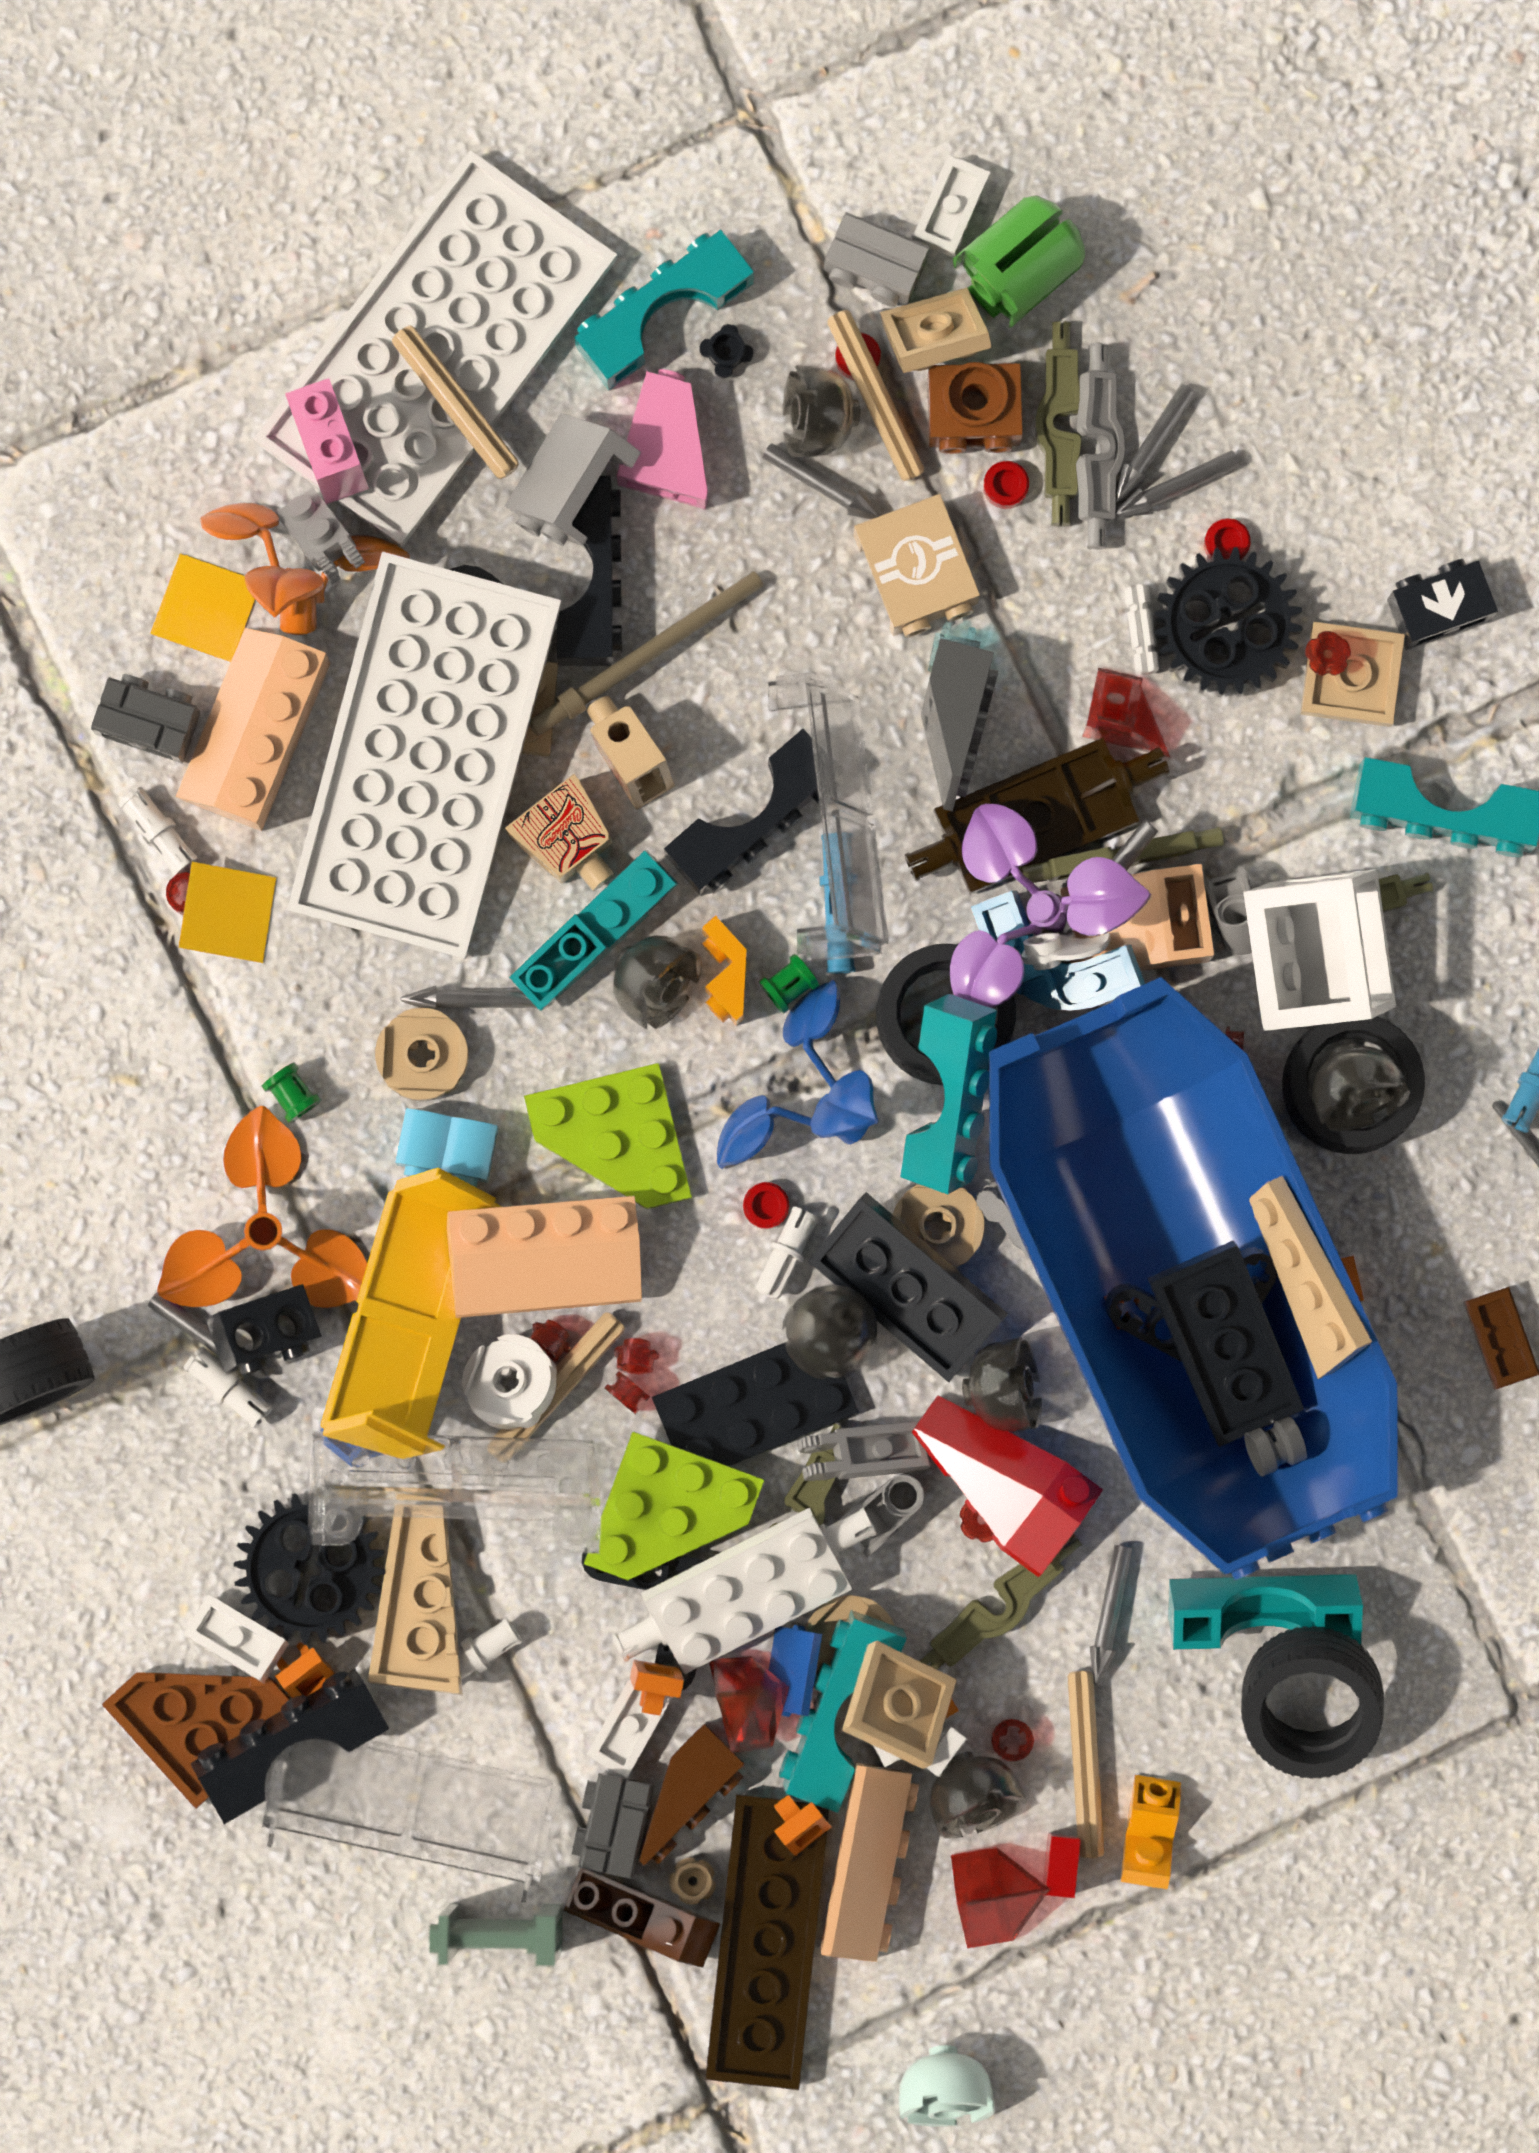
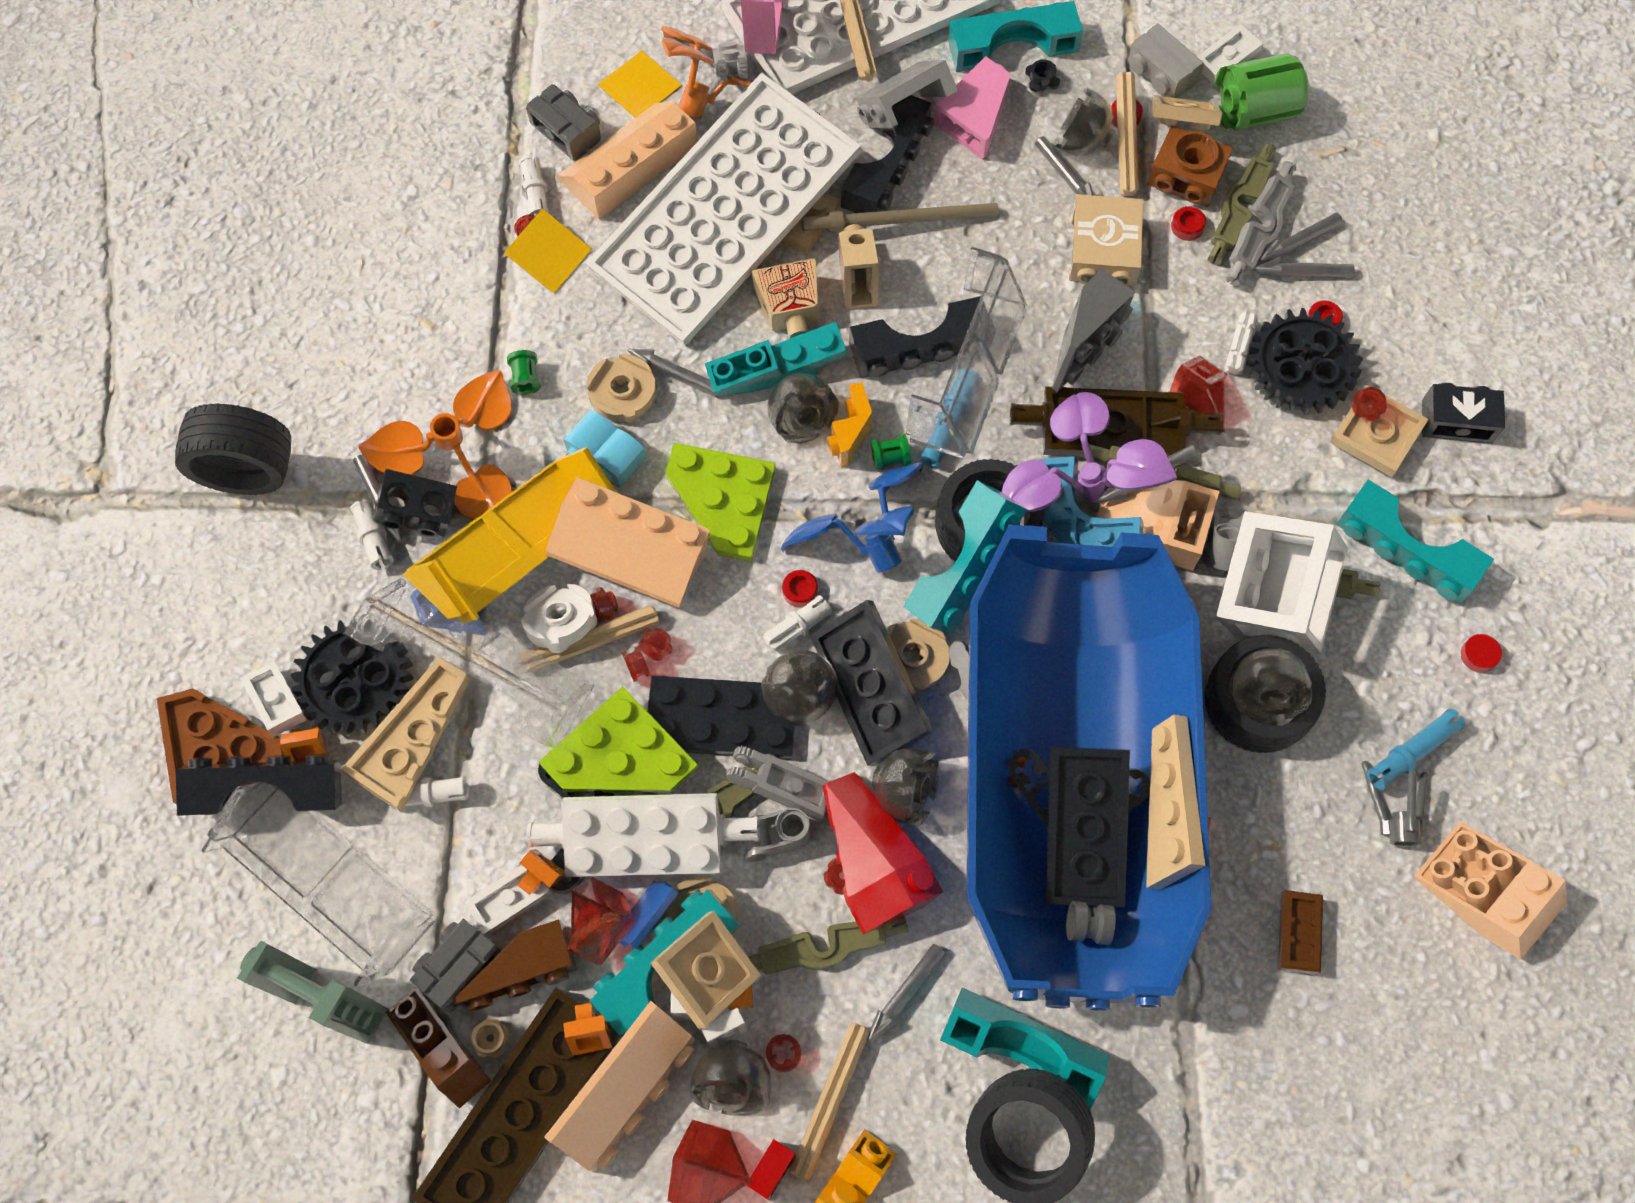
camera: 30 degrees right, 15 degrees down
(1048, 949) = (1082, 498): white plate -> none

